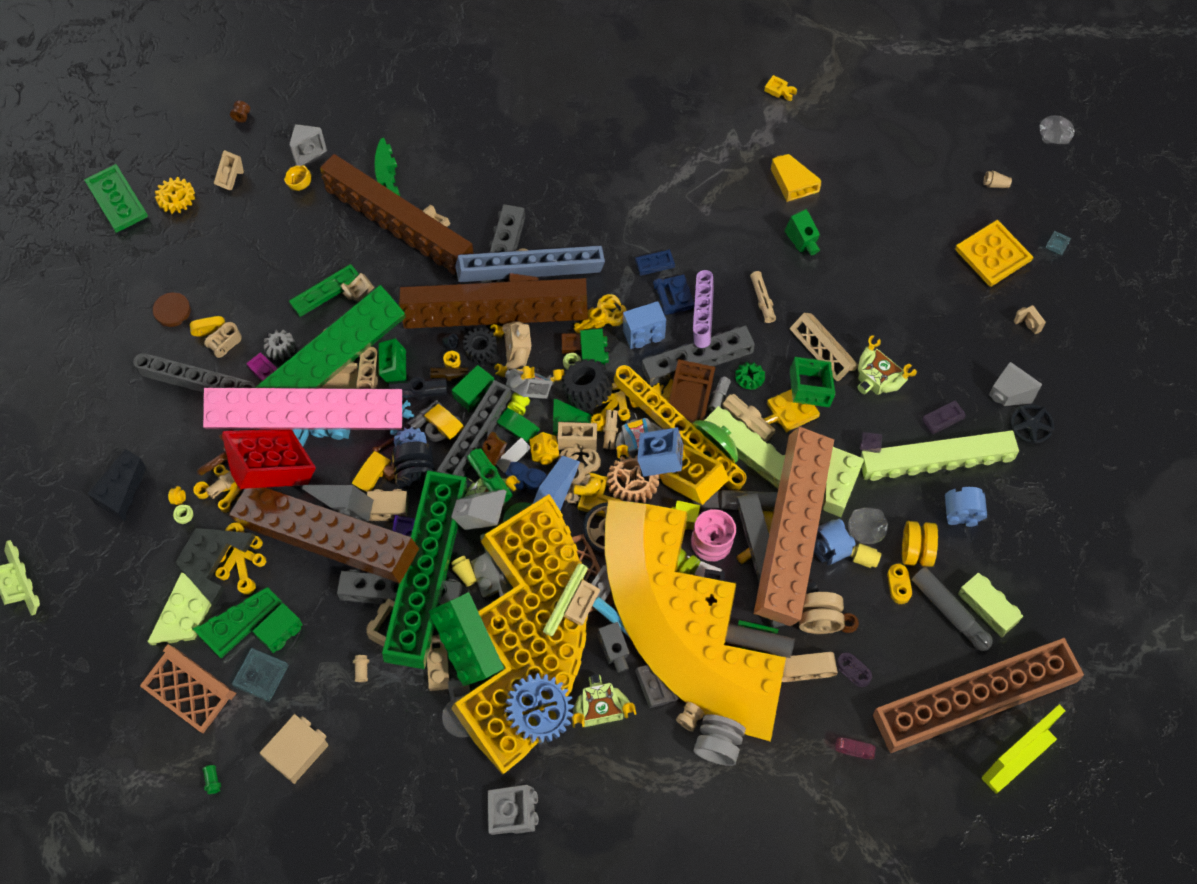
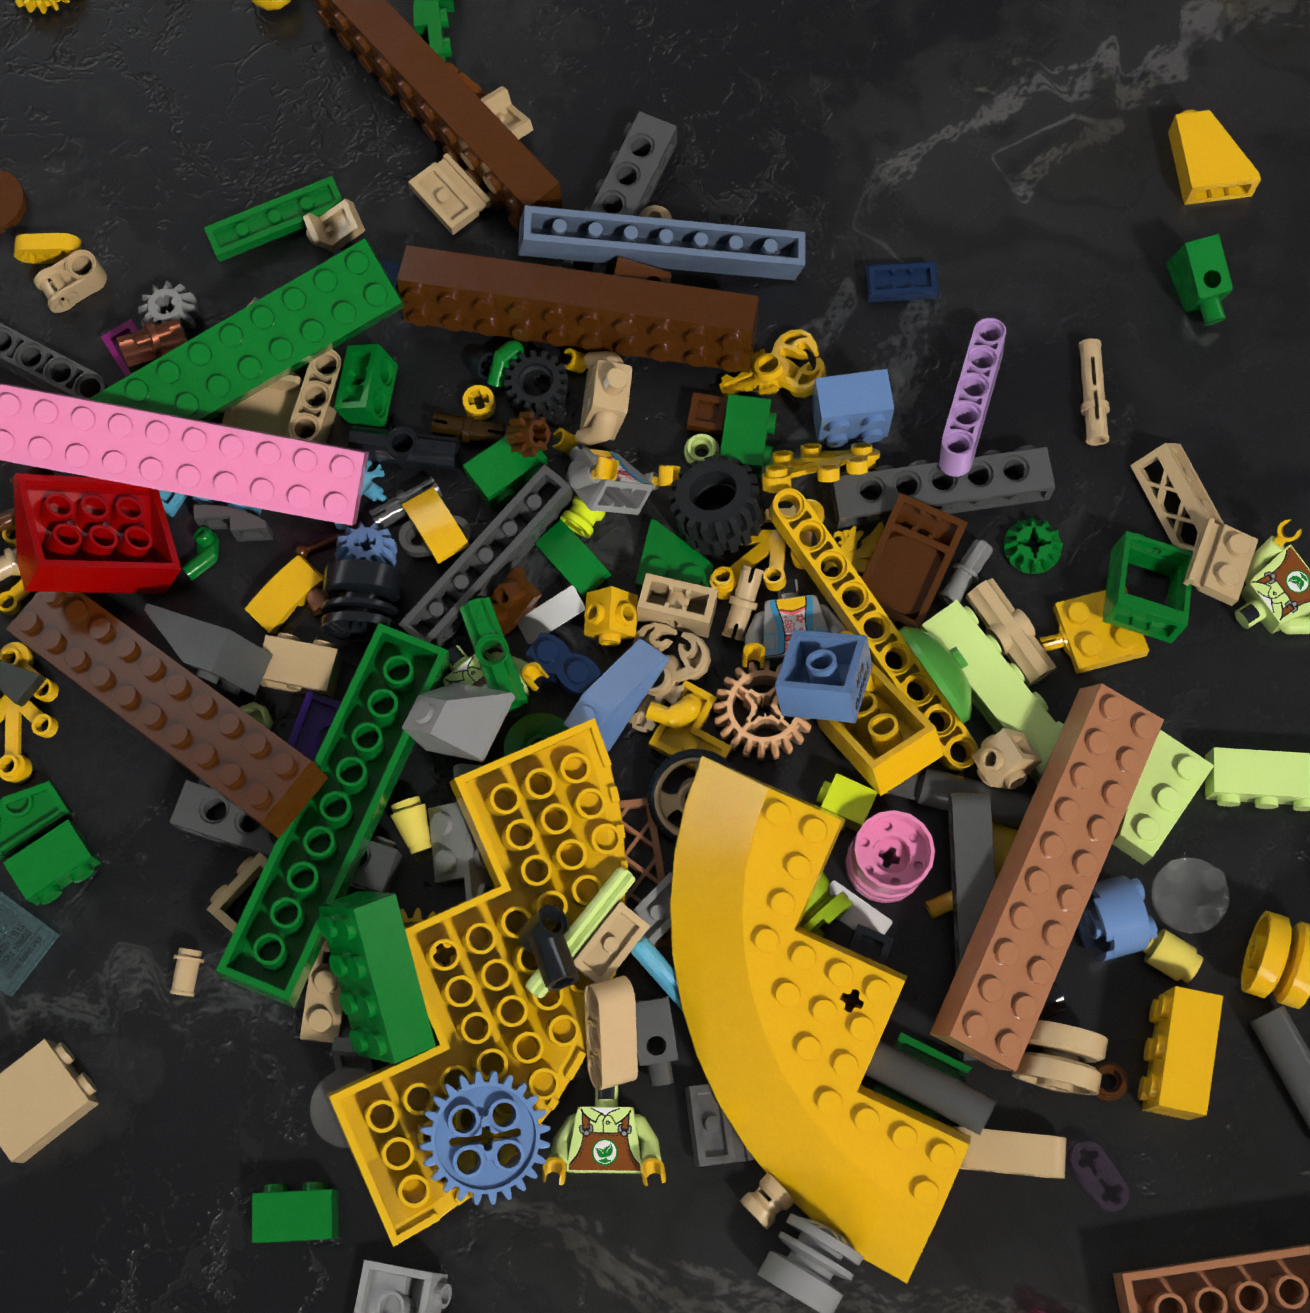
camera: 15 degrees right, 10 degrees up
(274, 360) = (150, 343): none -> copper hips
(325, 460) = (206, 553): none -> green arm
(343, 441) = (241, 523): none -> dark grey slope
(413, 262) = (449, 194): none -> tan plate
(446, 775) = (295, 1215): none -> green brick
(459, 337) = (502, 357): none -> green arm
(482, 366) = (528, 434): none -> reddish brown gear
(549, 603) = (545, 939): none -> black piece
(592, 646) = (611, 1032): none -> tan beam
(615, 359) = (826, 464): none -> yellow plant
(679, 292) = (935, 353): dark blue plate -> none
(760, 476) = (1005, 759): none -> tan brick
(844, 362) = (1221, 561): none -> tan plate
(870, 442) = (1234, 734): clear purple bracket -> none
(880, 599) = (1181, 1053): none -> yellow brick
(899, 583) = (1231, 1024): yellow plate -> none

